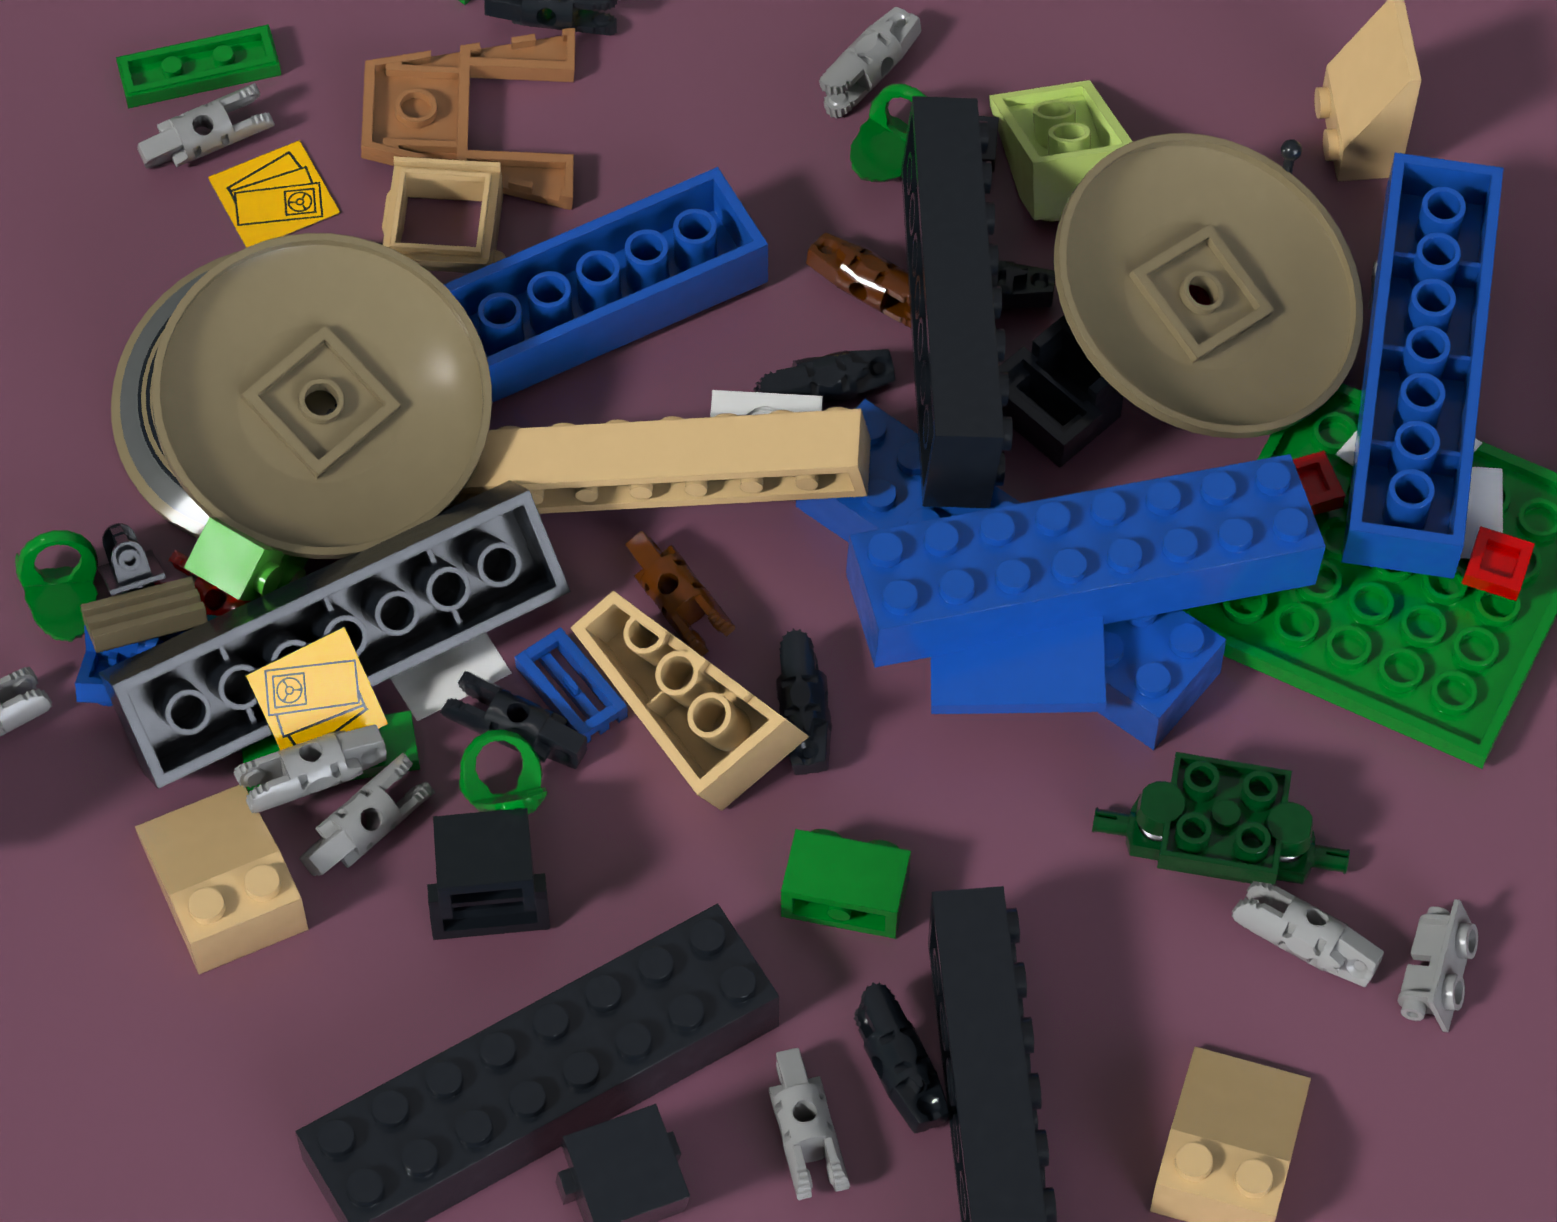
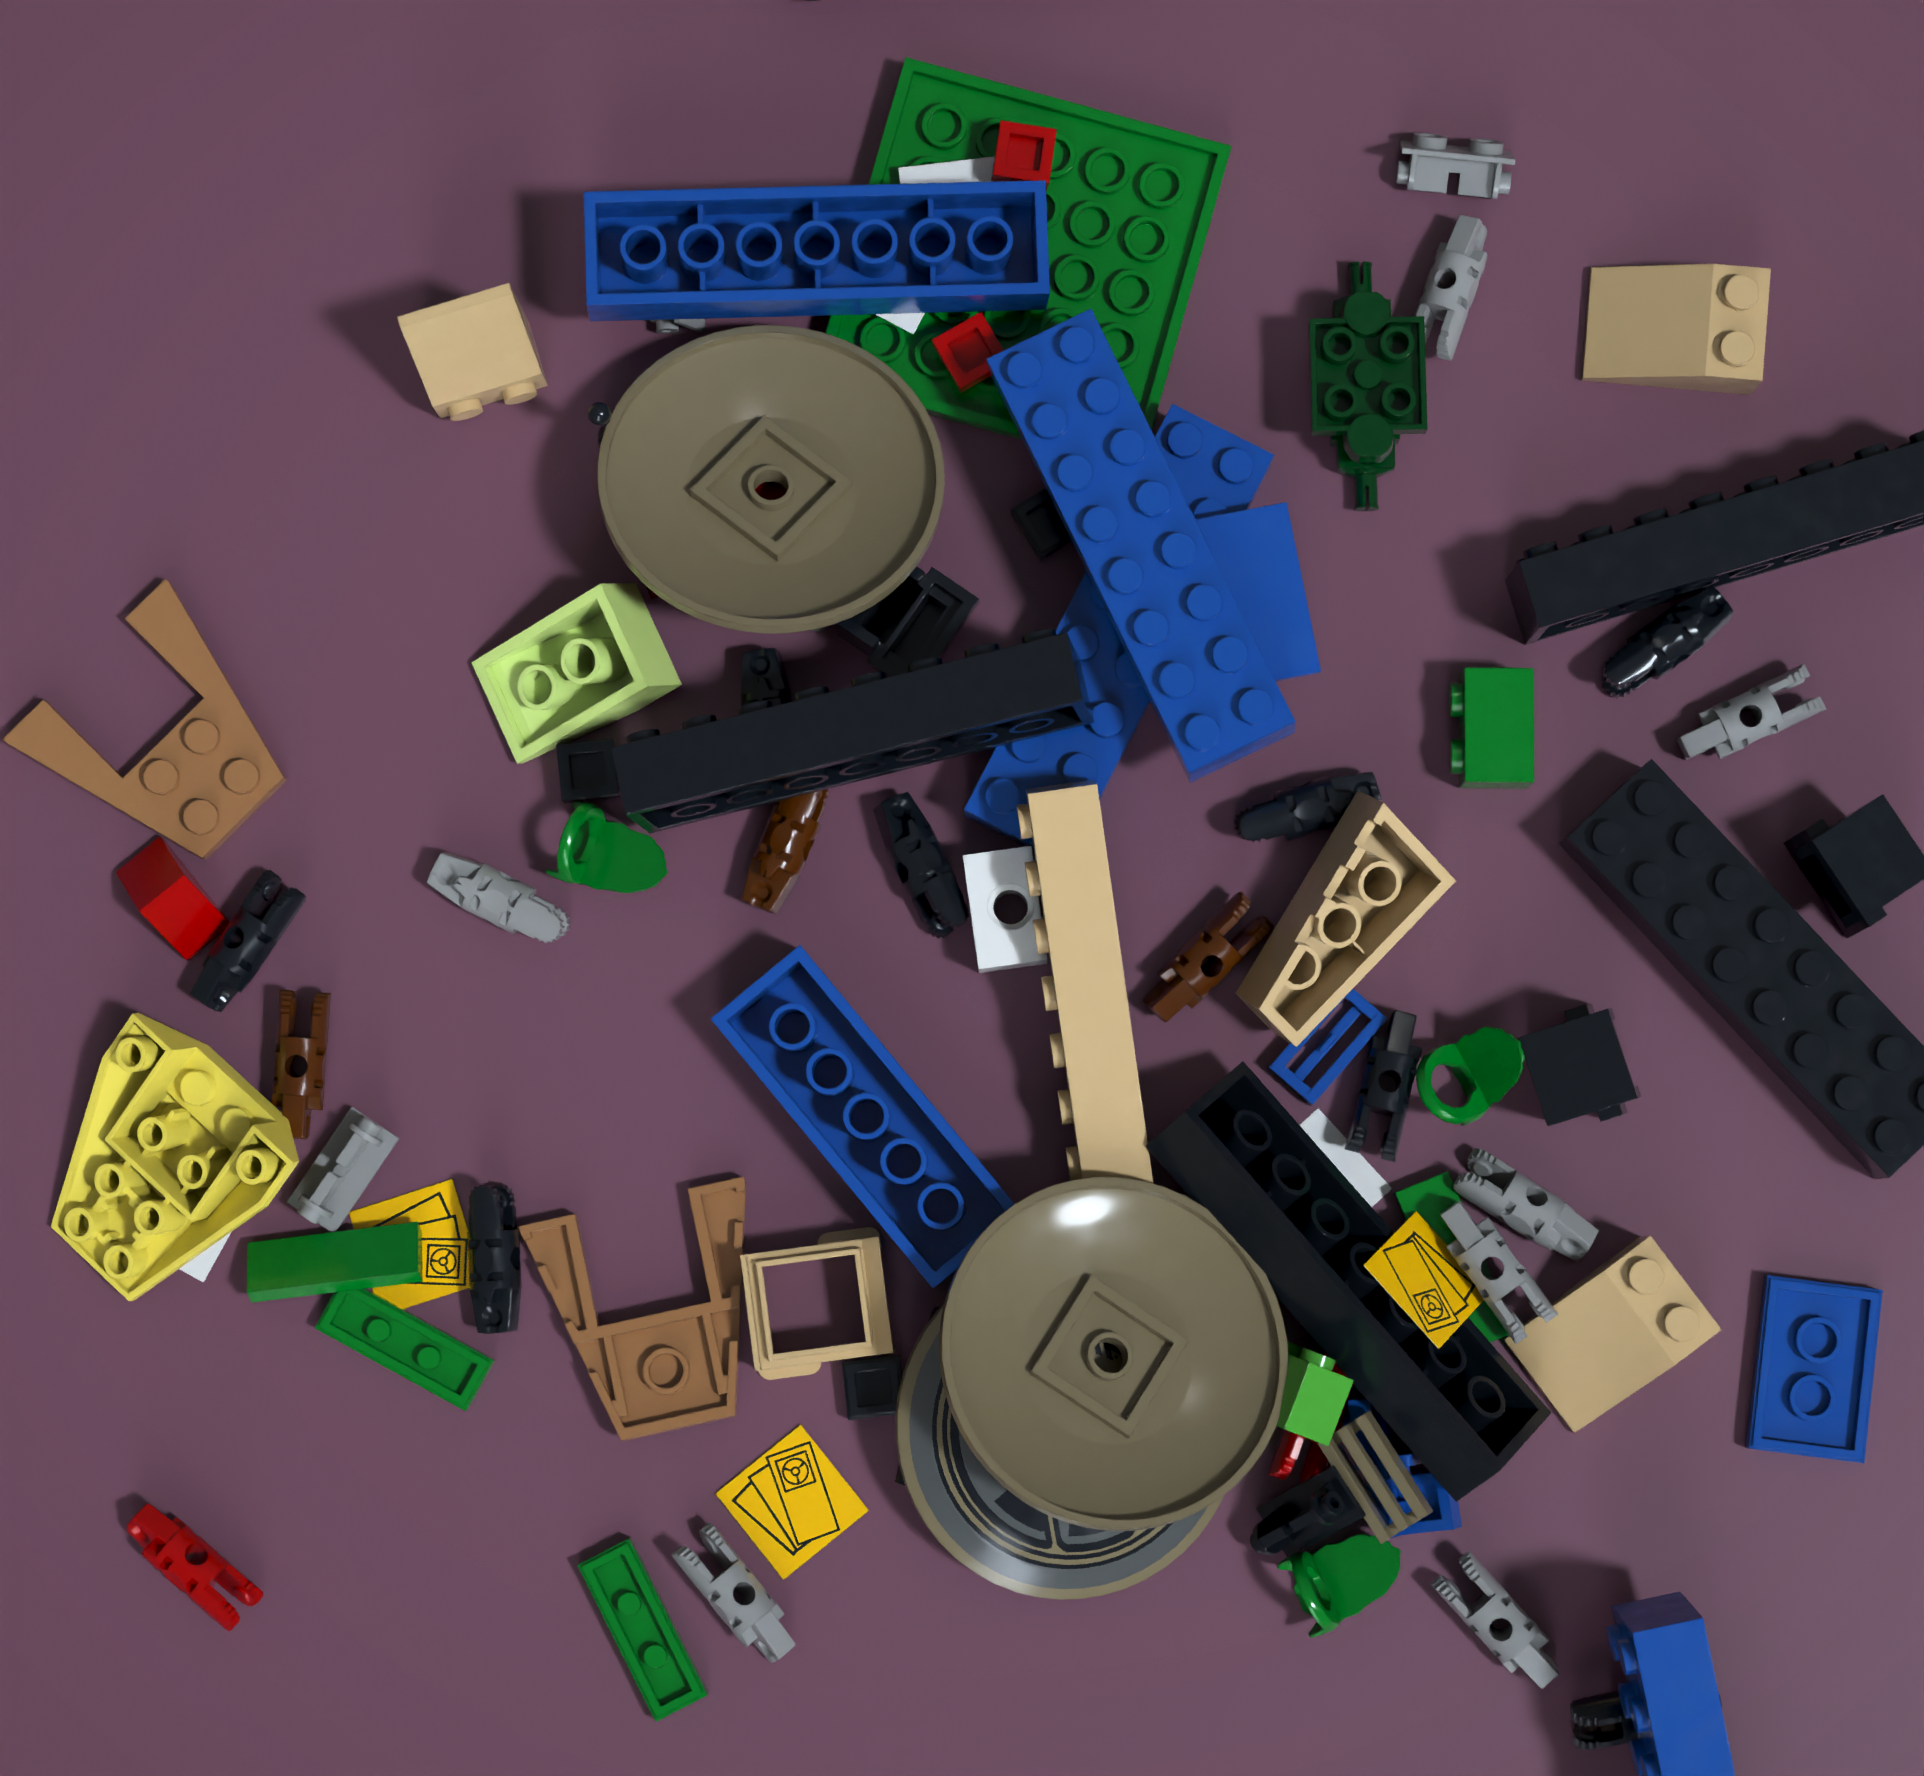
camera: 95 degrees left, 25 degrees up
(129, 1056) = (1814, 1369): none -> blue tile

